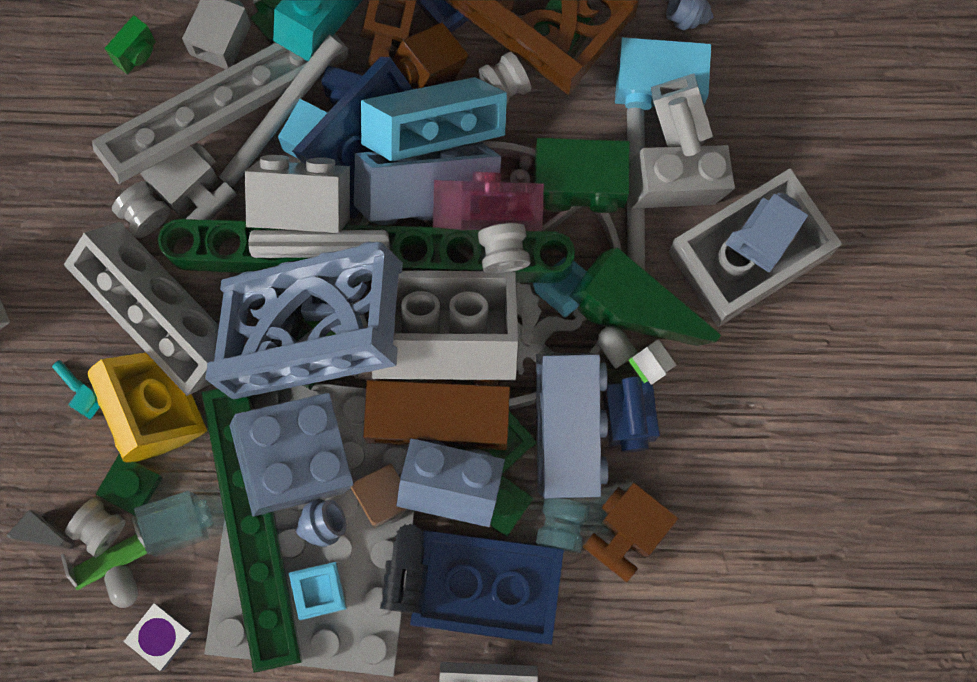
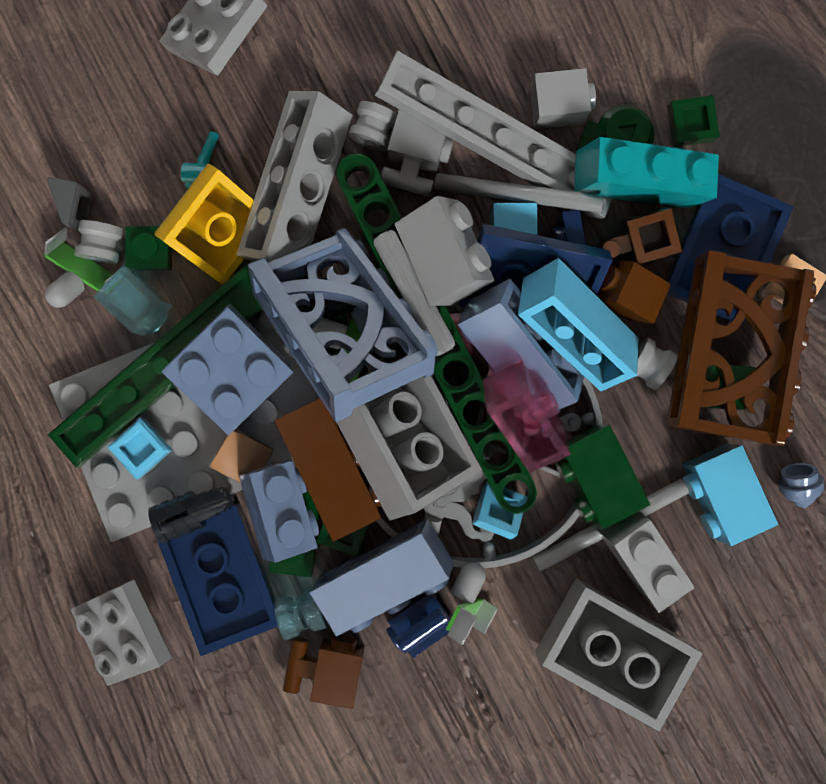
camera: 60 degrees right, 10 degrees up
(131, 45) = (508, 35): green plate -> none
(158, 637) = (44, 340): tile -> none
(321, 522) = (191, 424): sand blue plate -> none
(504, 248) = (493, 453): light grey wheel -> none
(627, 297) = (515, 570): dark green slope -> none
(682, 114) = (700, 536): light grey brick -> none
(768, 230) = (636, 671): sand blue window -> none

